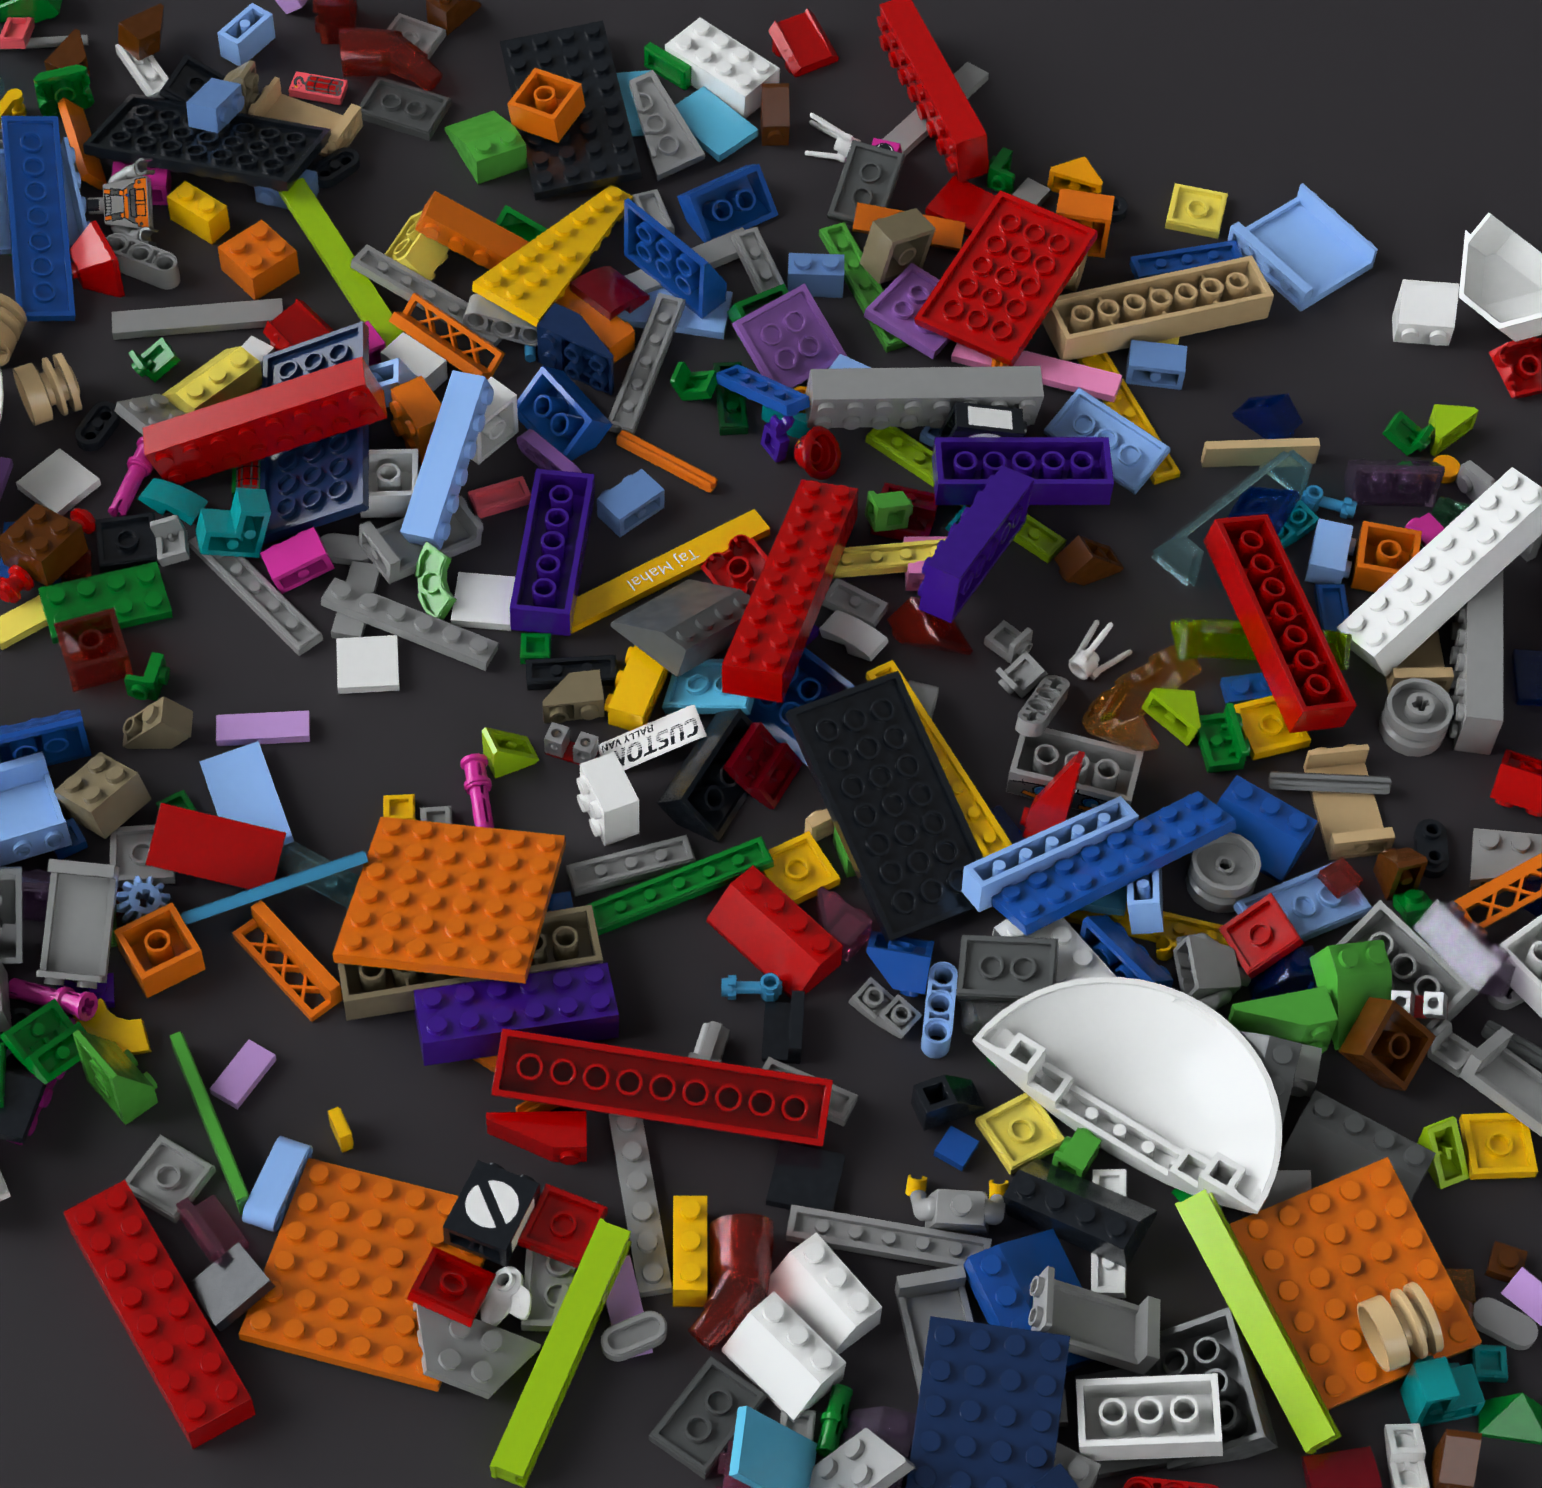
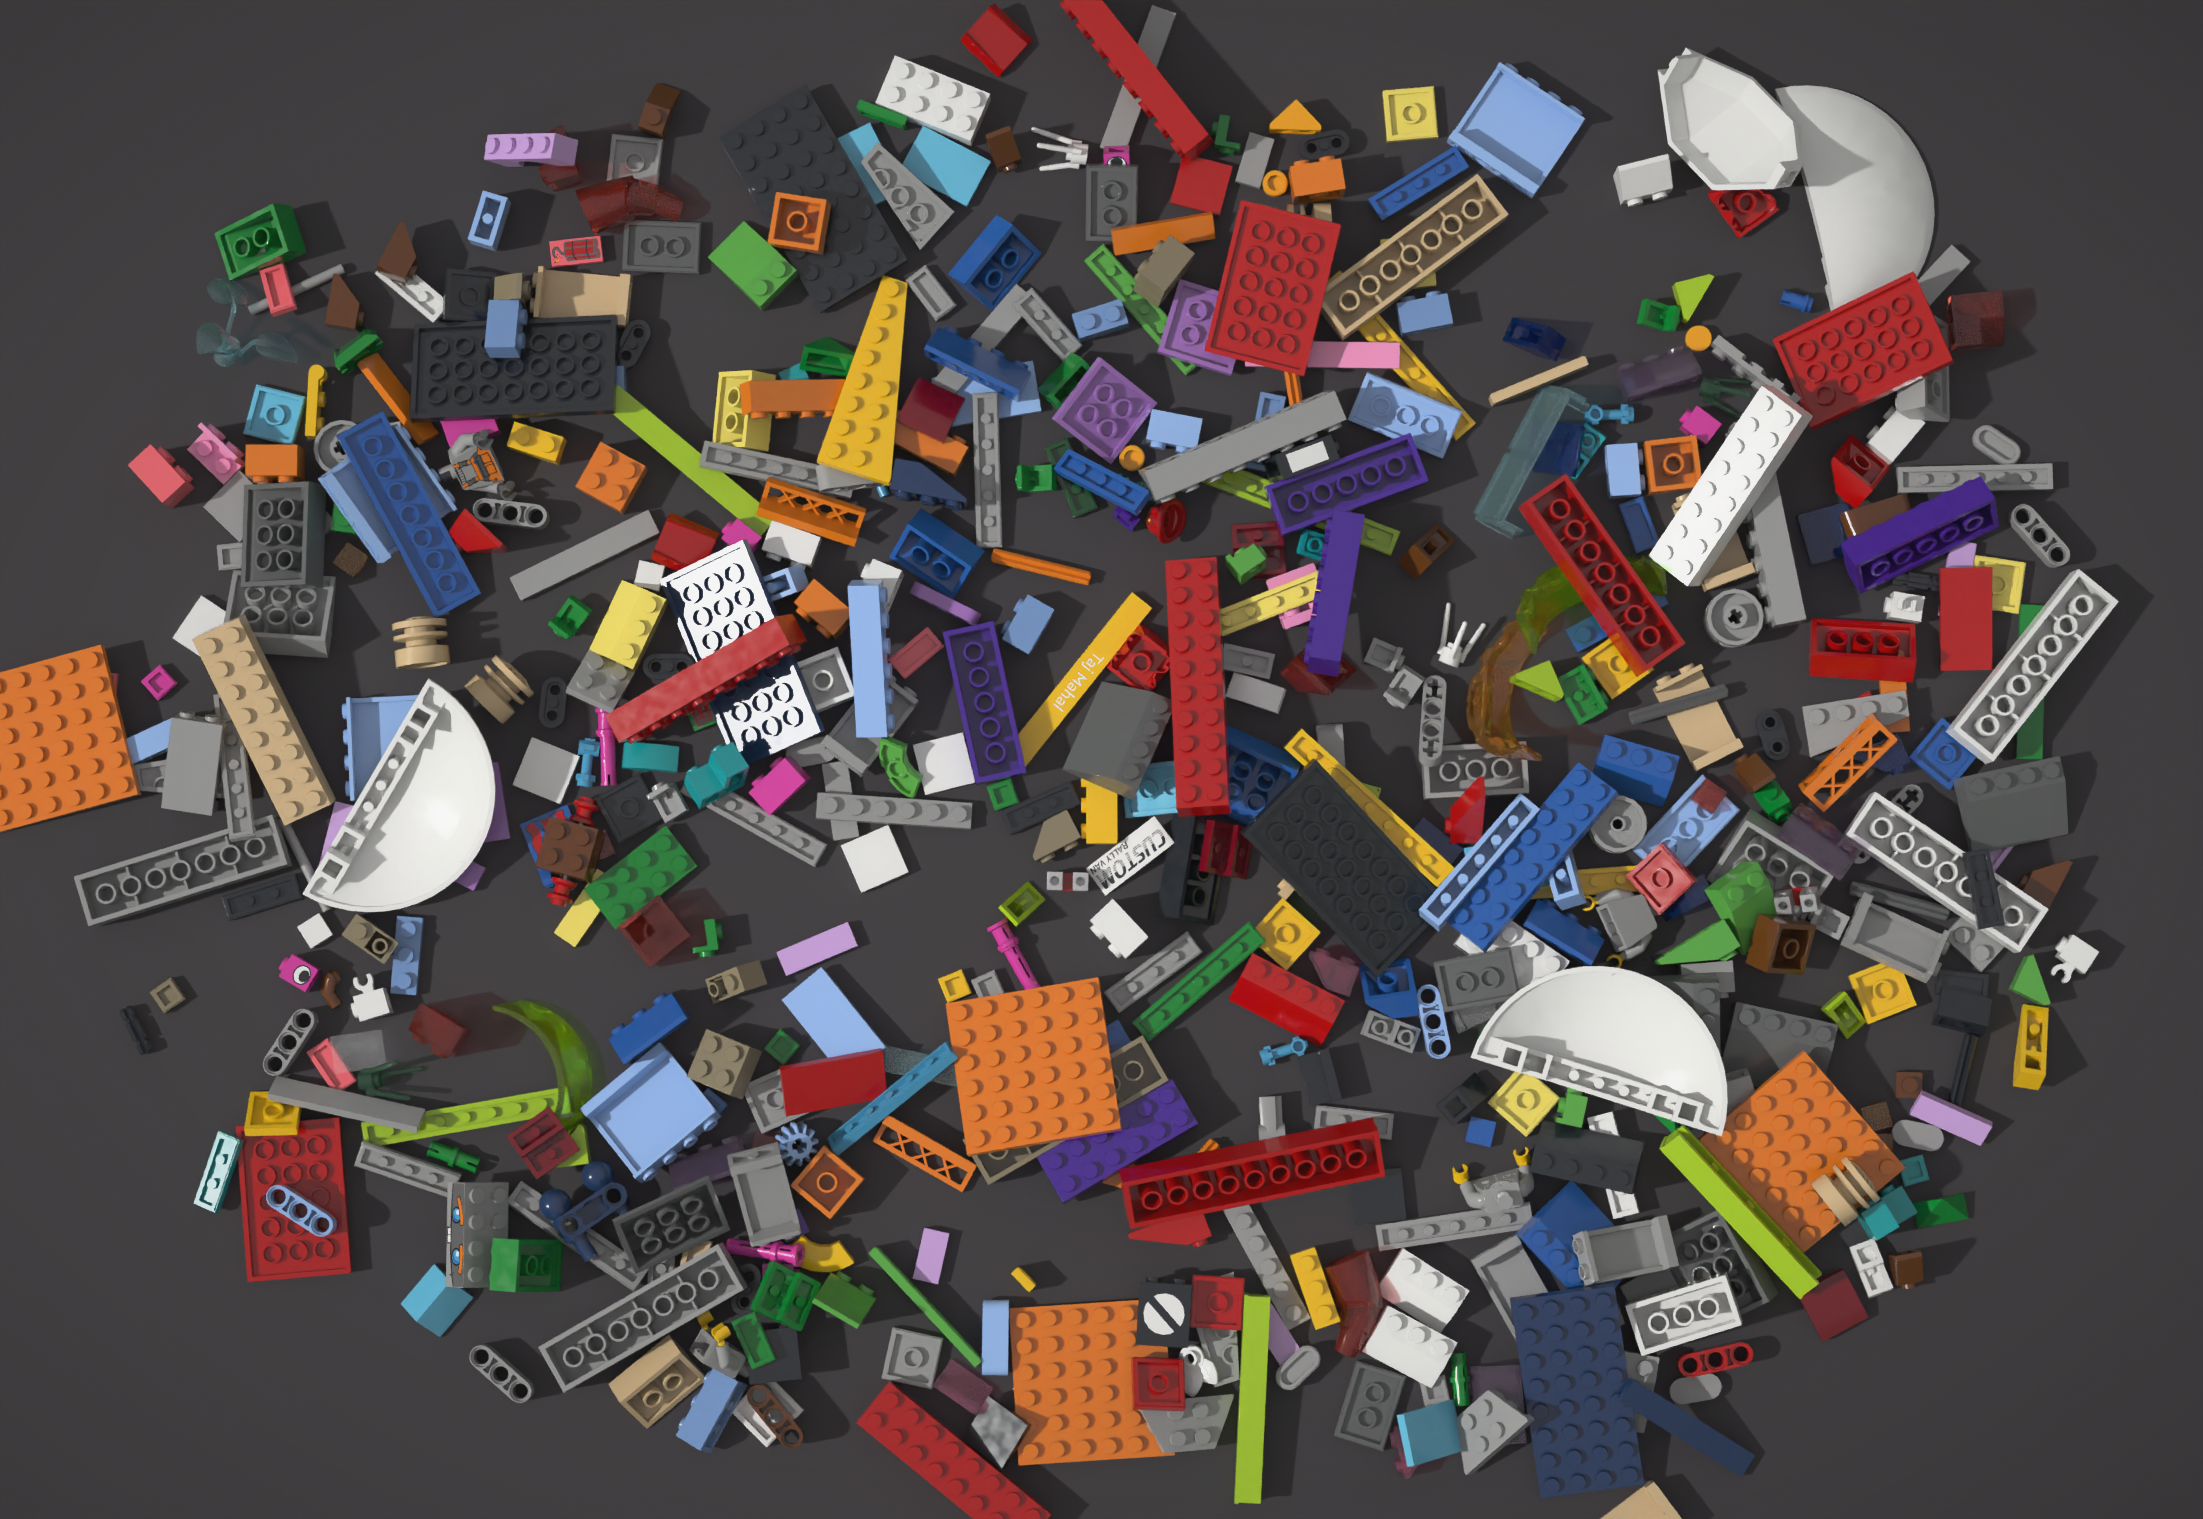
camera: 10 degrees left, 30 degrees up
(110, 476) = (588, 749): none -> dark azure bar

